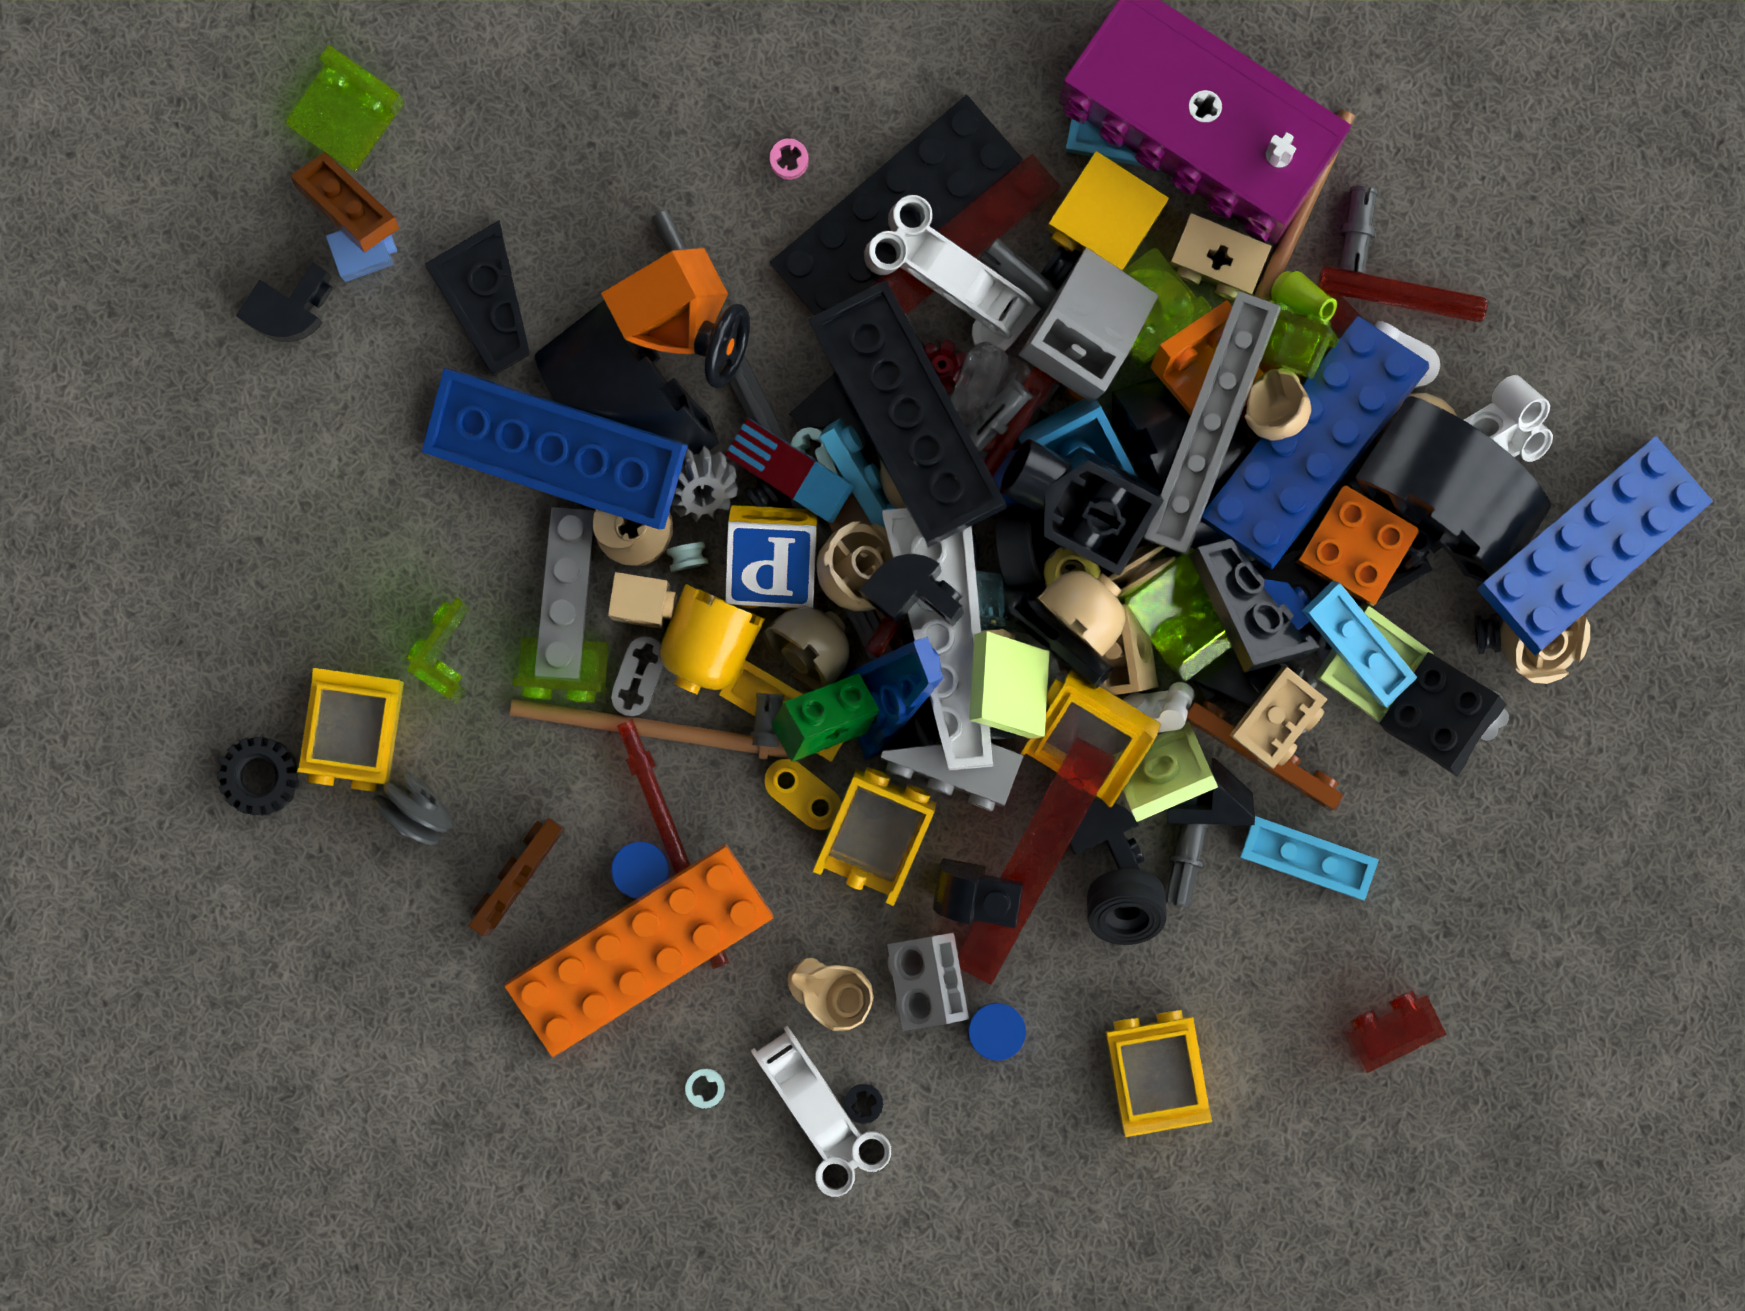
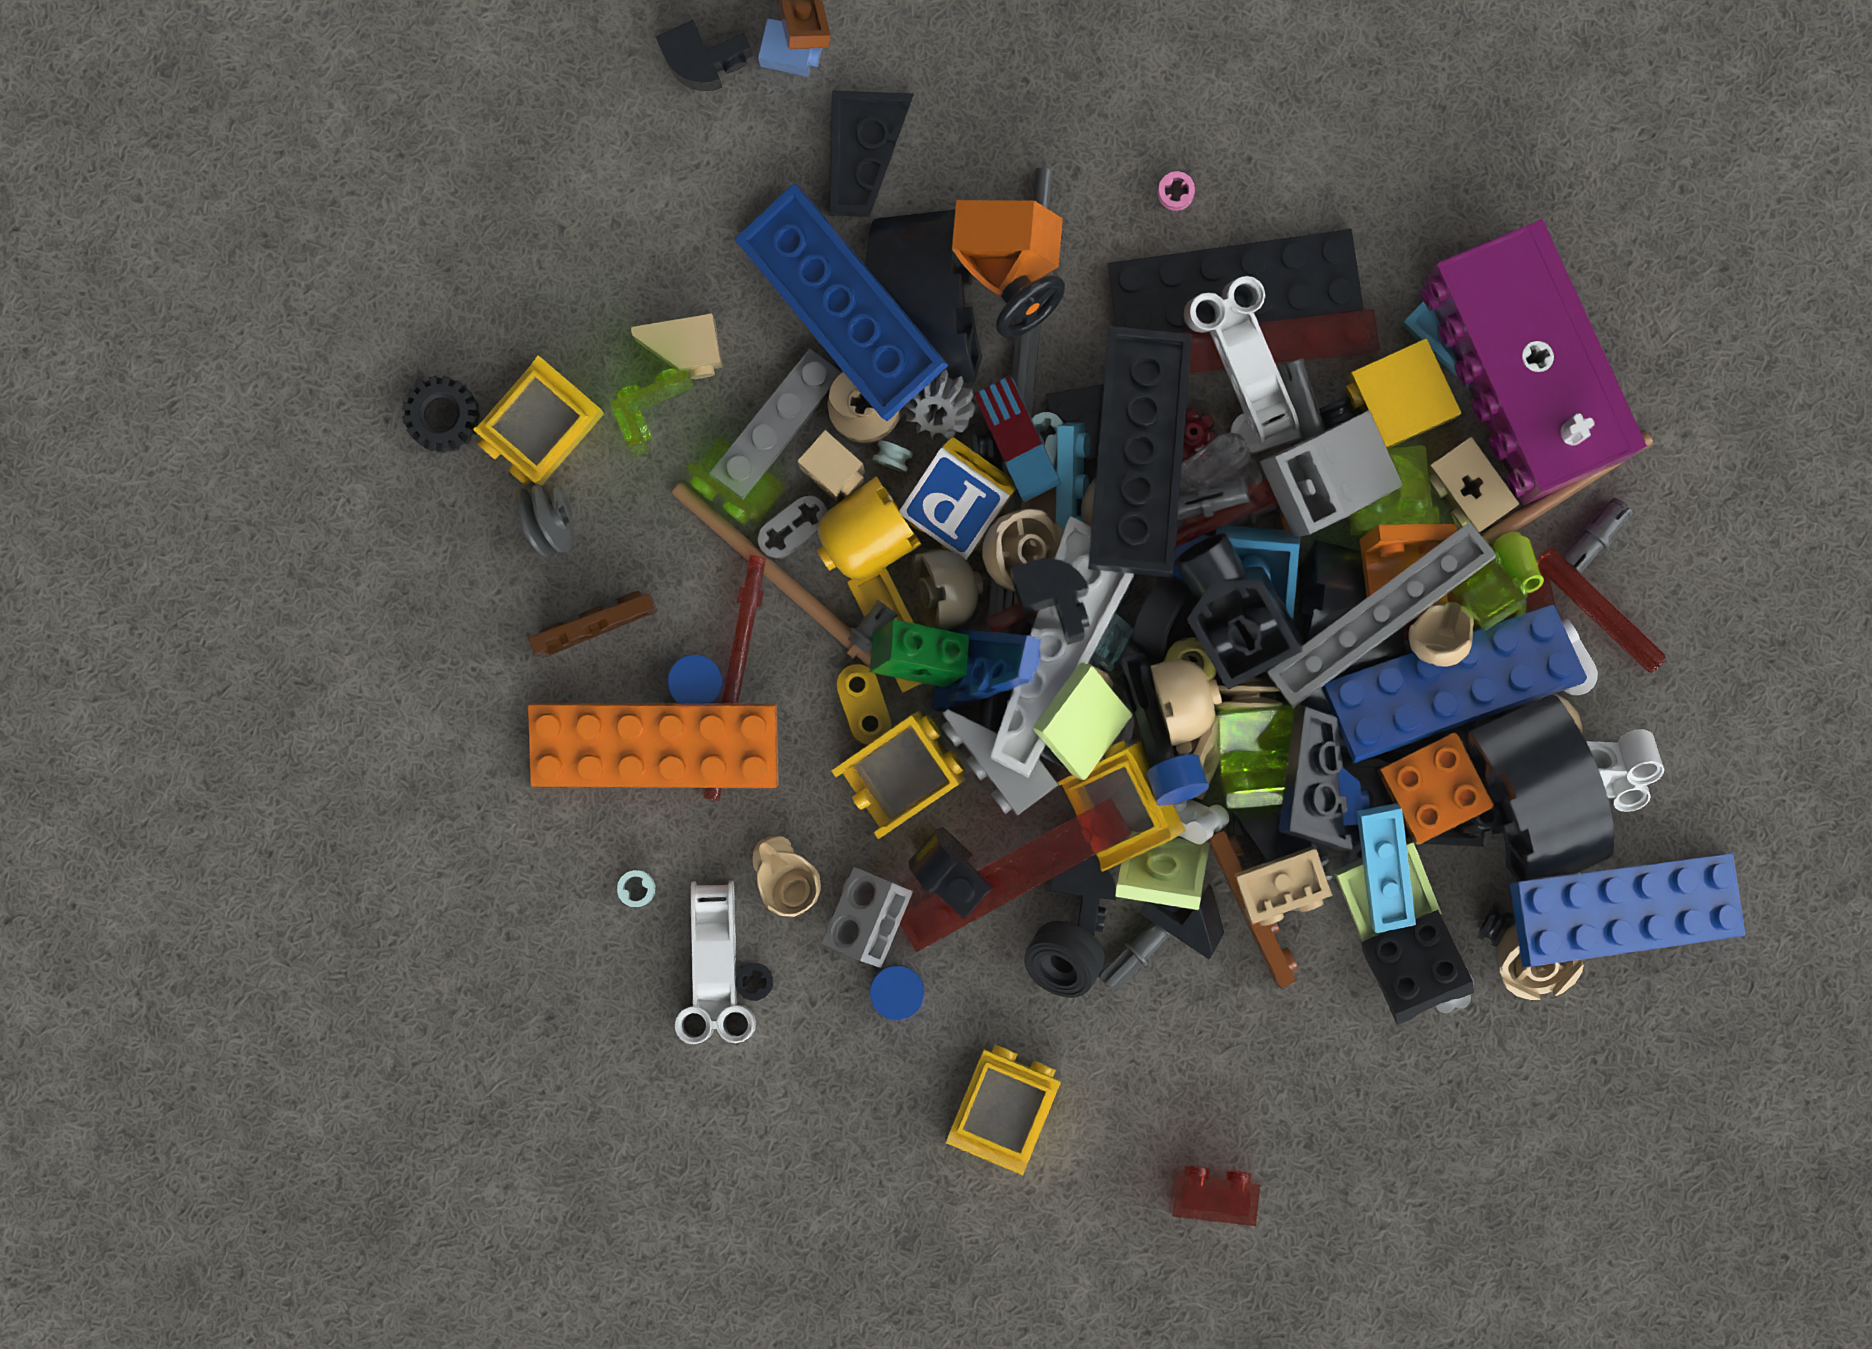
camera: 40 degrees right, 0 degrees up
(436, 575) = (684, 344): none -> tan slope
(1126, 683) = (1177, 779): none -> blue piece
(1309, 858) = (1236, 1014): medium azure plate -> none

